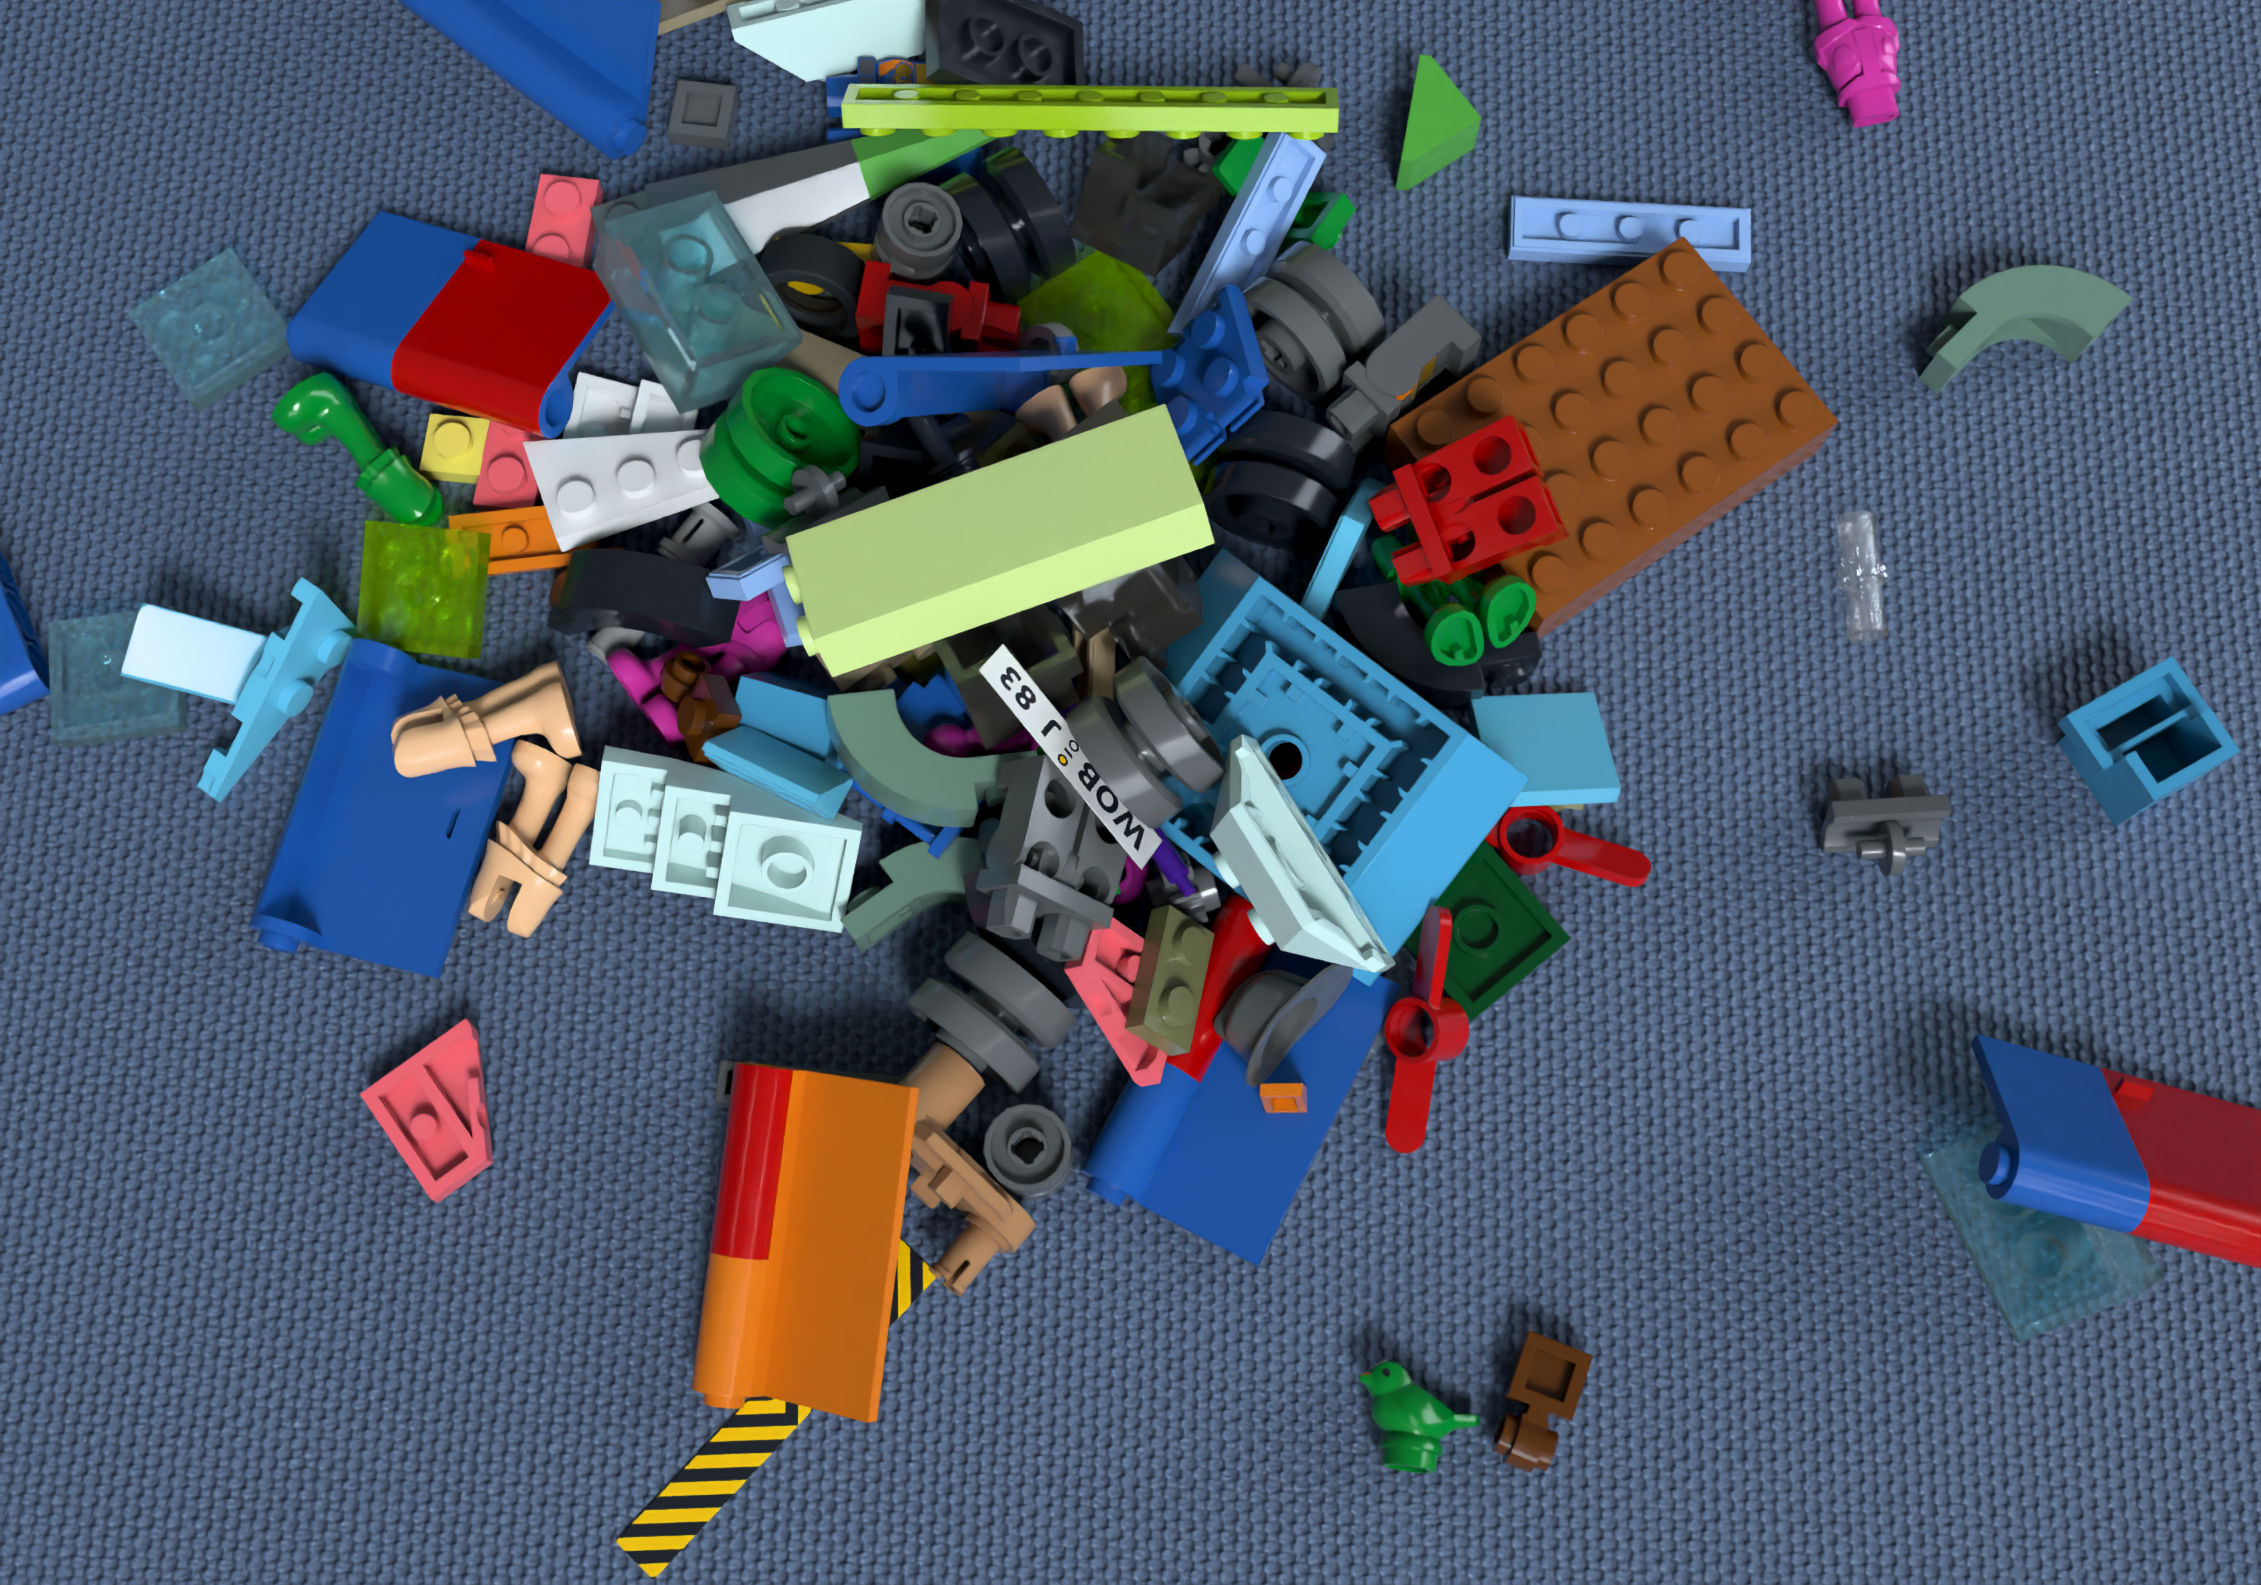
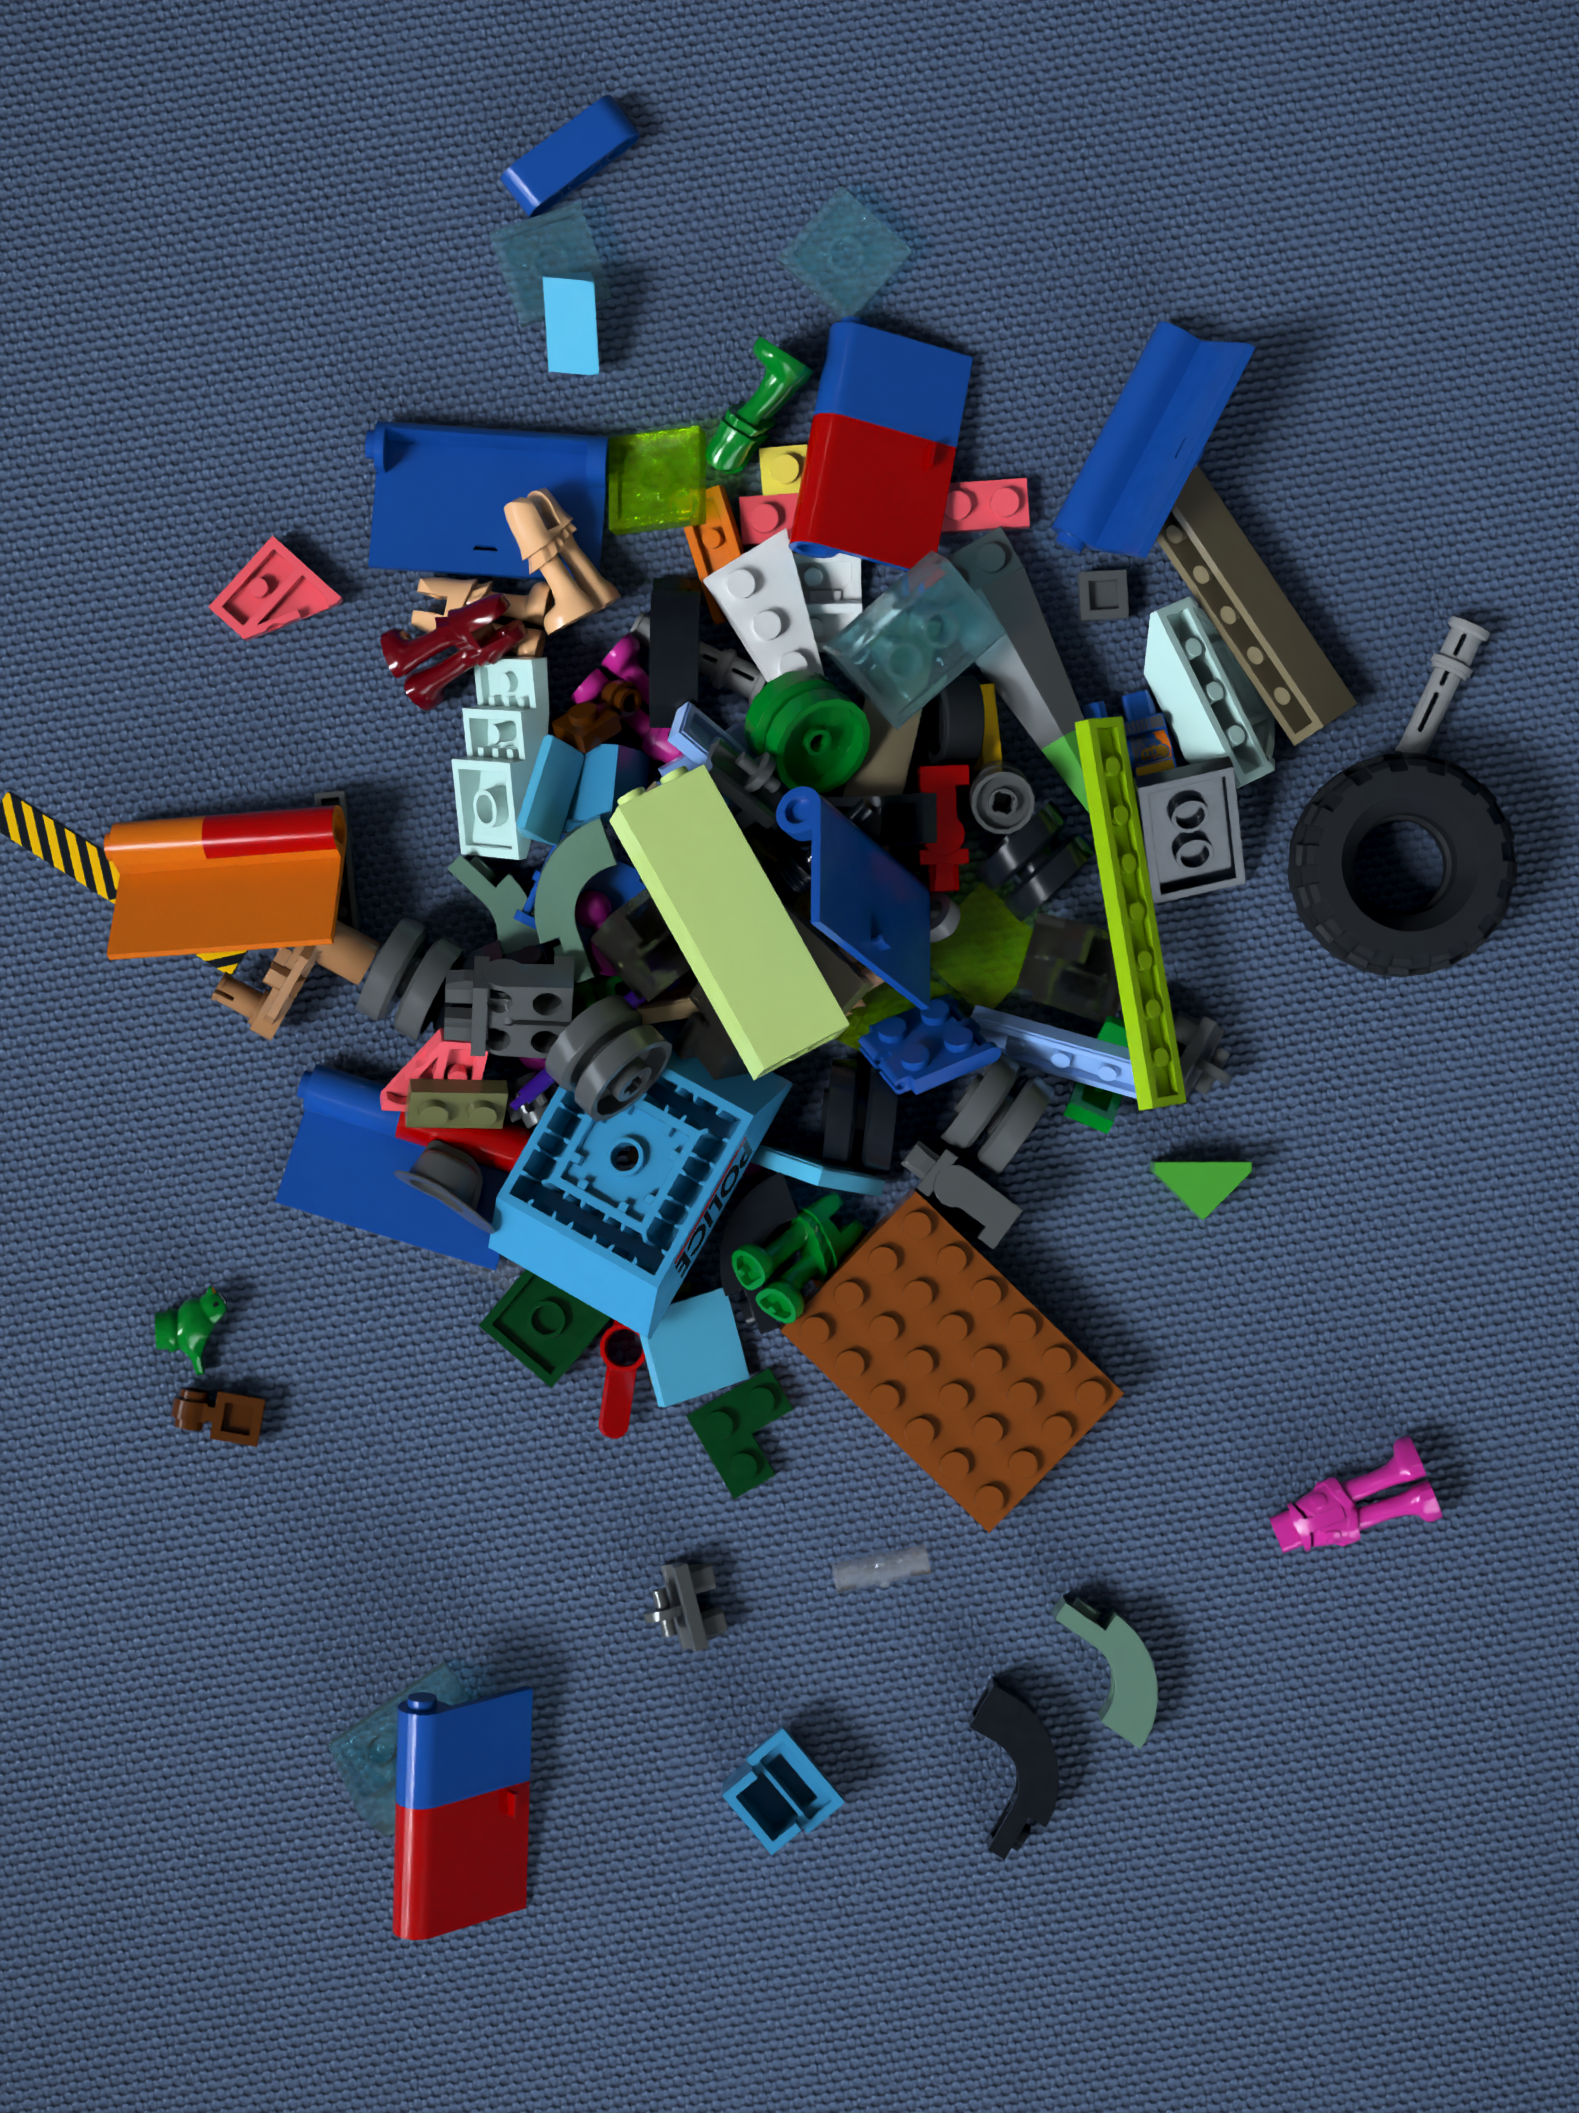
camera: 80 degrees right, 15 degrees up
(281, 684) = (561, 392): medium azure wing -> none
(541, 850) = (465, 628): none -> dark red piece
(1029, 1152) = (320, 1025): dark grey wheel -> none
(1056, 740) = (593, 987): white sticker -> none
(1284, 1097) = (395, 1199): orange piece -> none
(1285, 868) = (538, 1176): light aqua wedge -> none
(1415, 1061) = (452, 1284): red piece -> none
(1470, 505) = (842, 1245): red hips -> none
(1625, 232) = (1141, 1352): light blue tile -> none
(1656, 734) = (728, 1426): none -> dark green plate
(2141, 436) = (1018, 1729): none -> black arch

